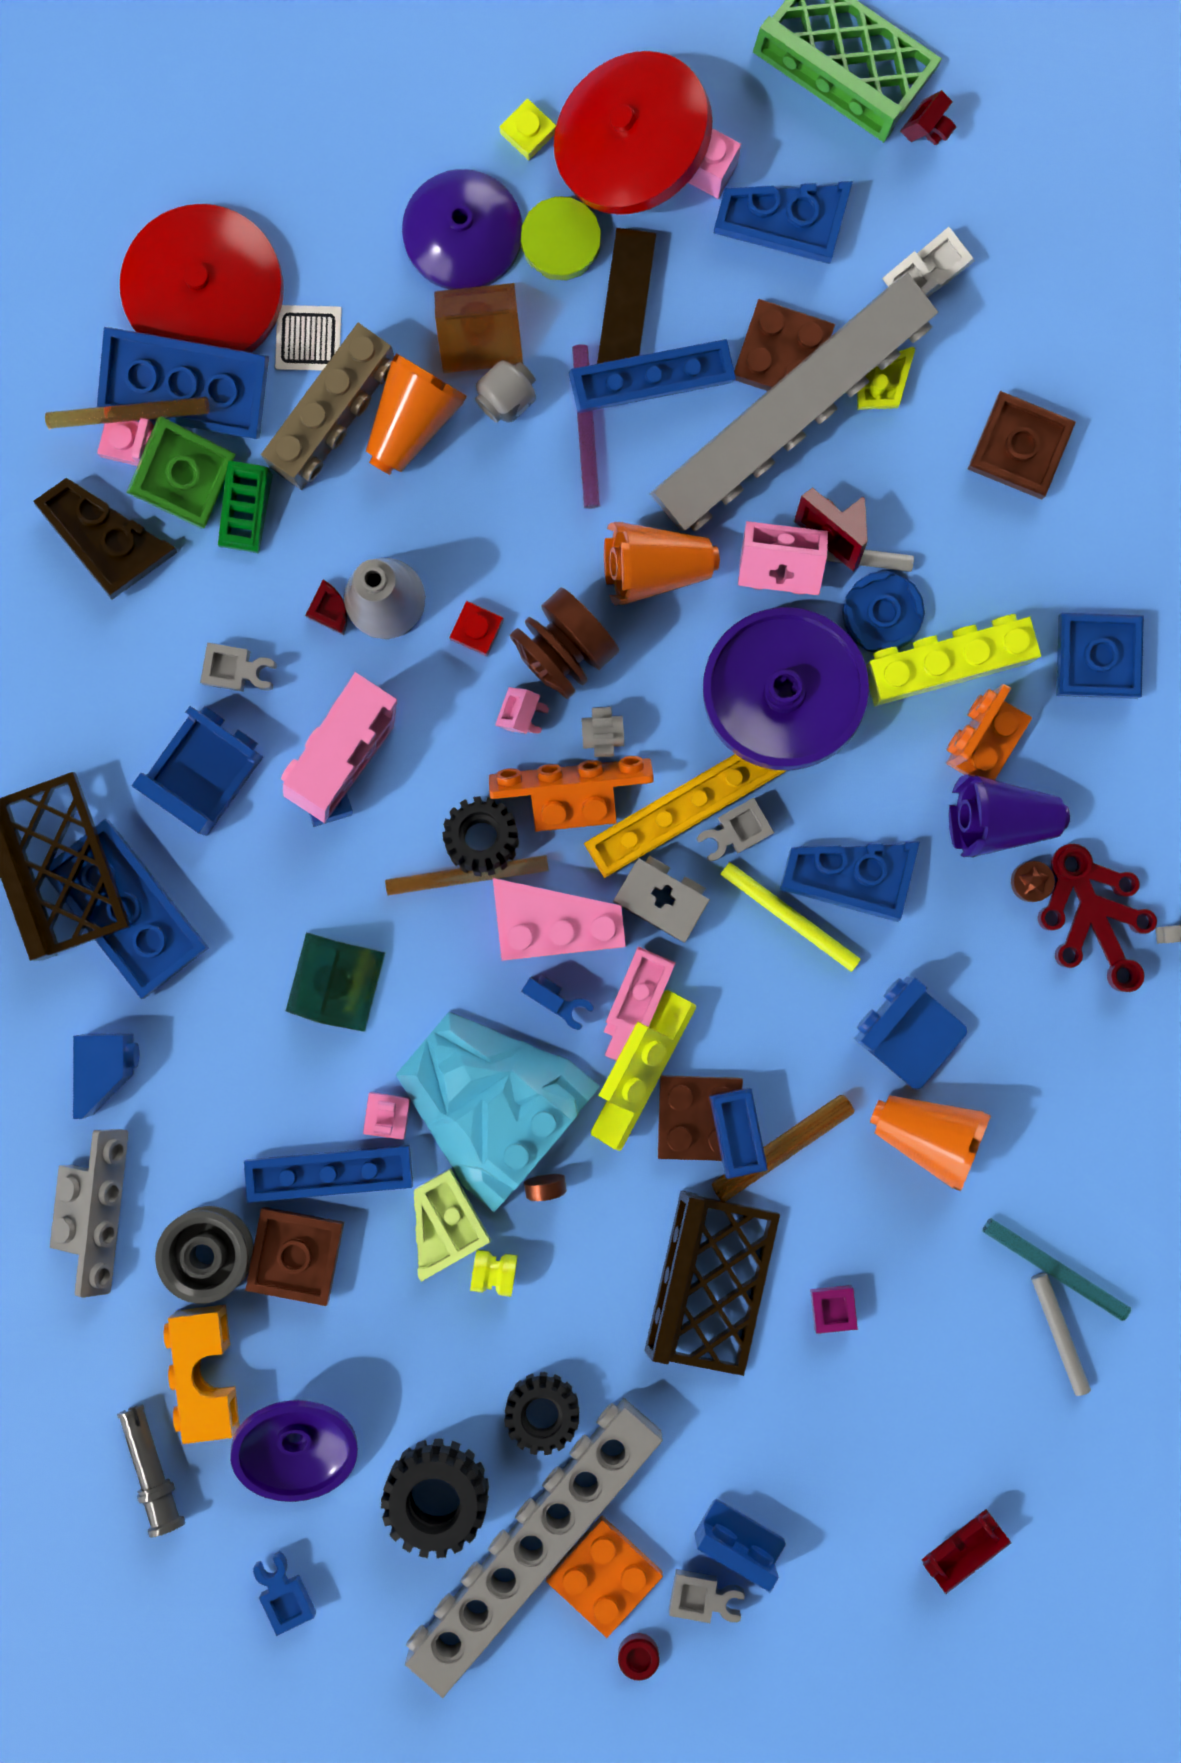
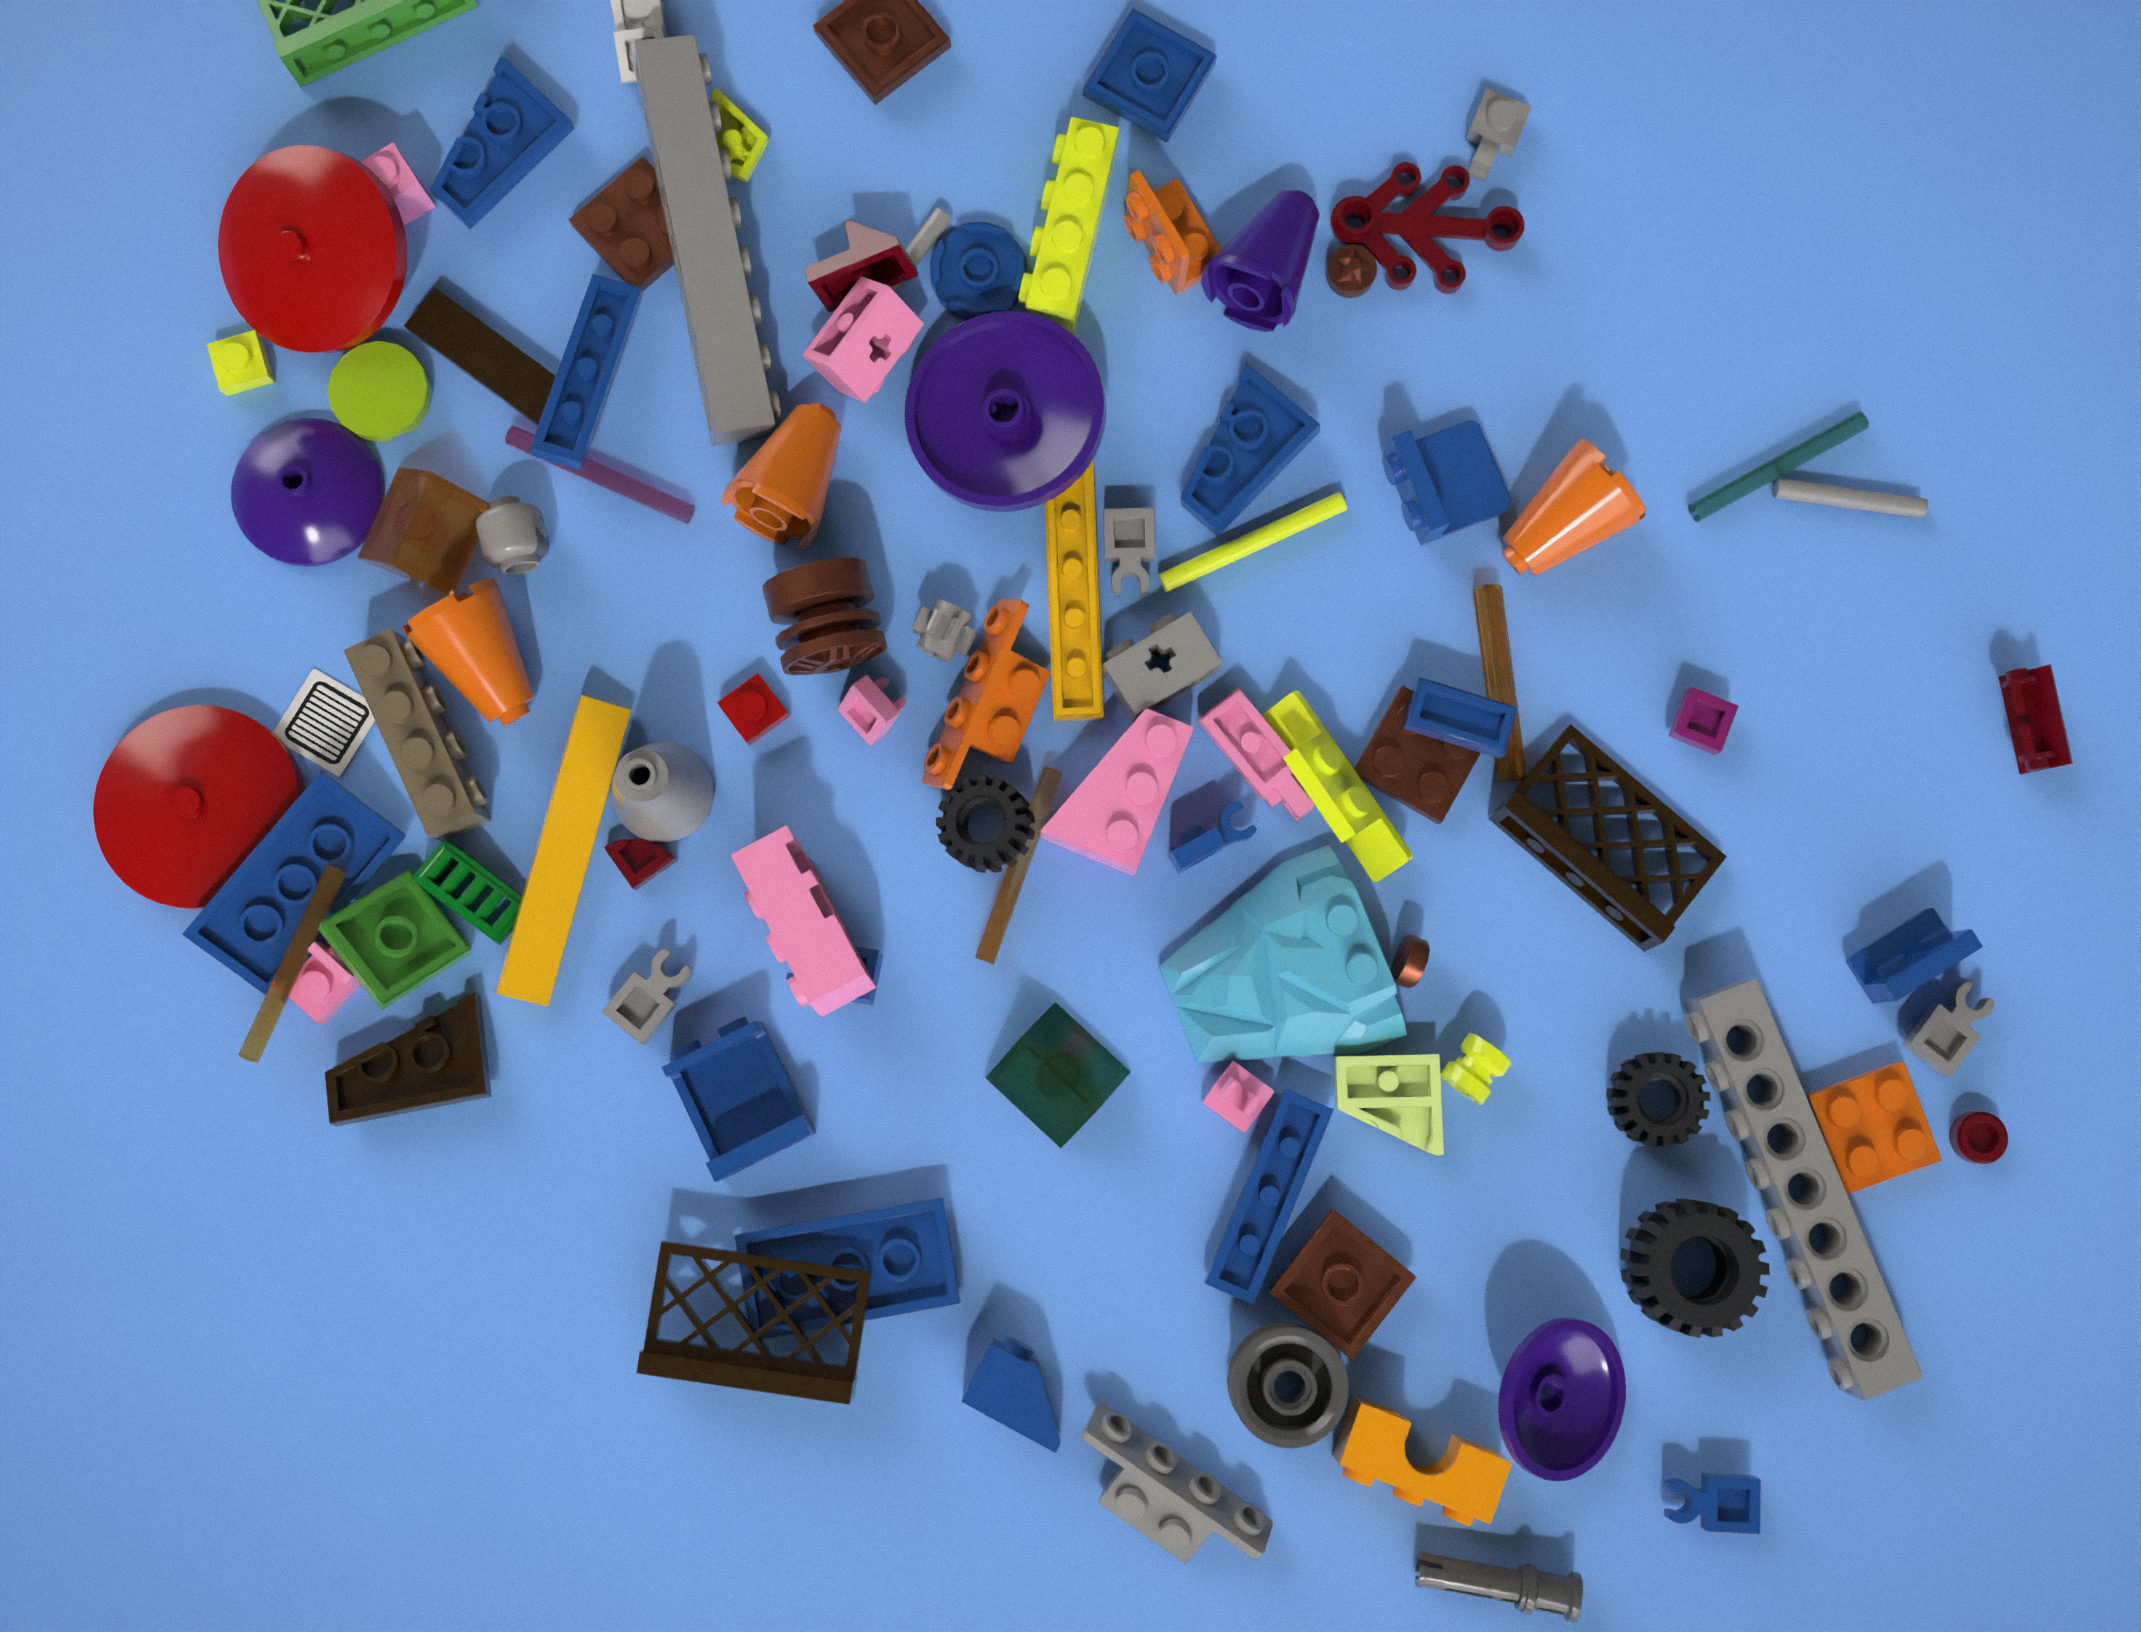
camera: 70 degrees left, 5 degrees down
(305, 553) = (563, 851): none -> yellow tile

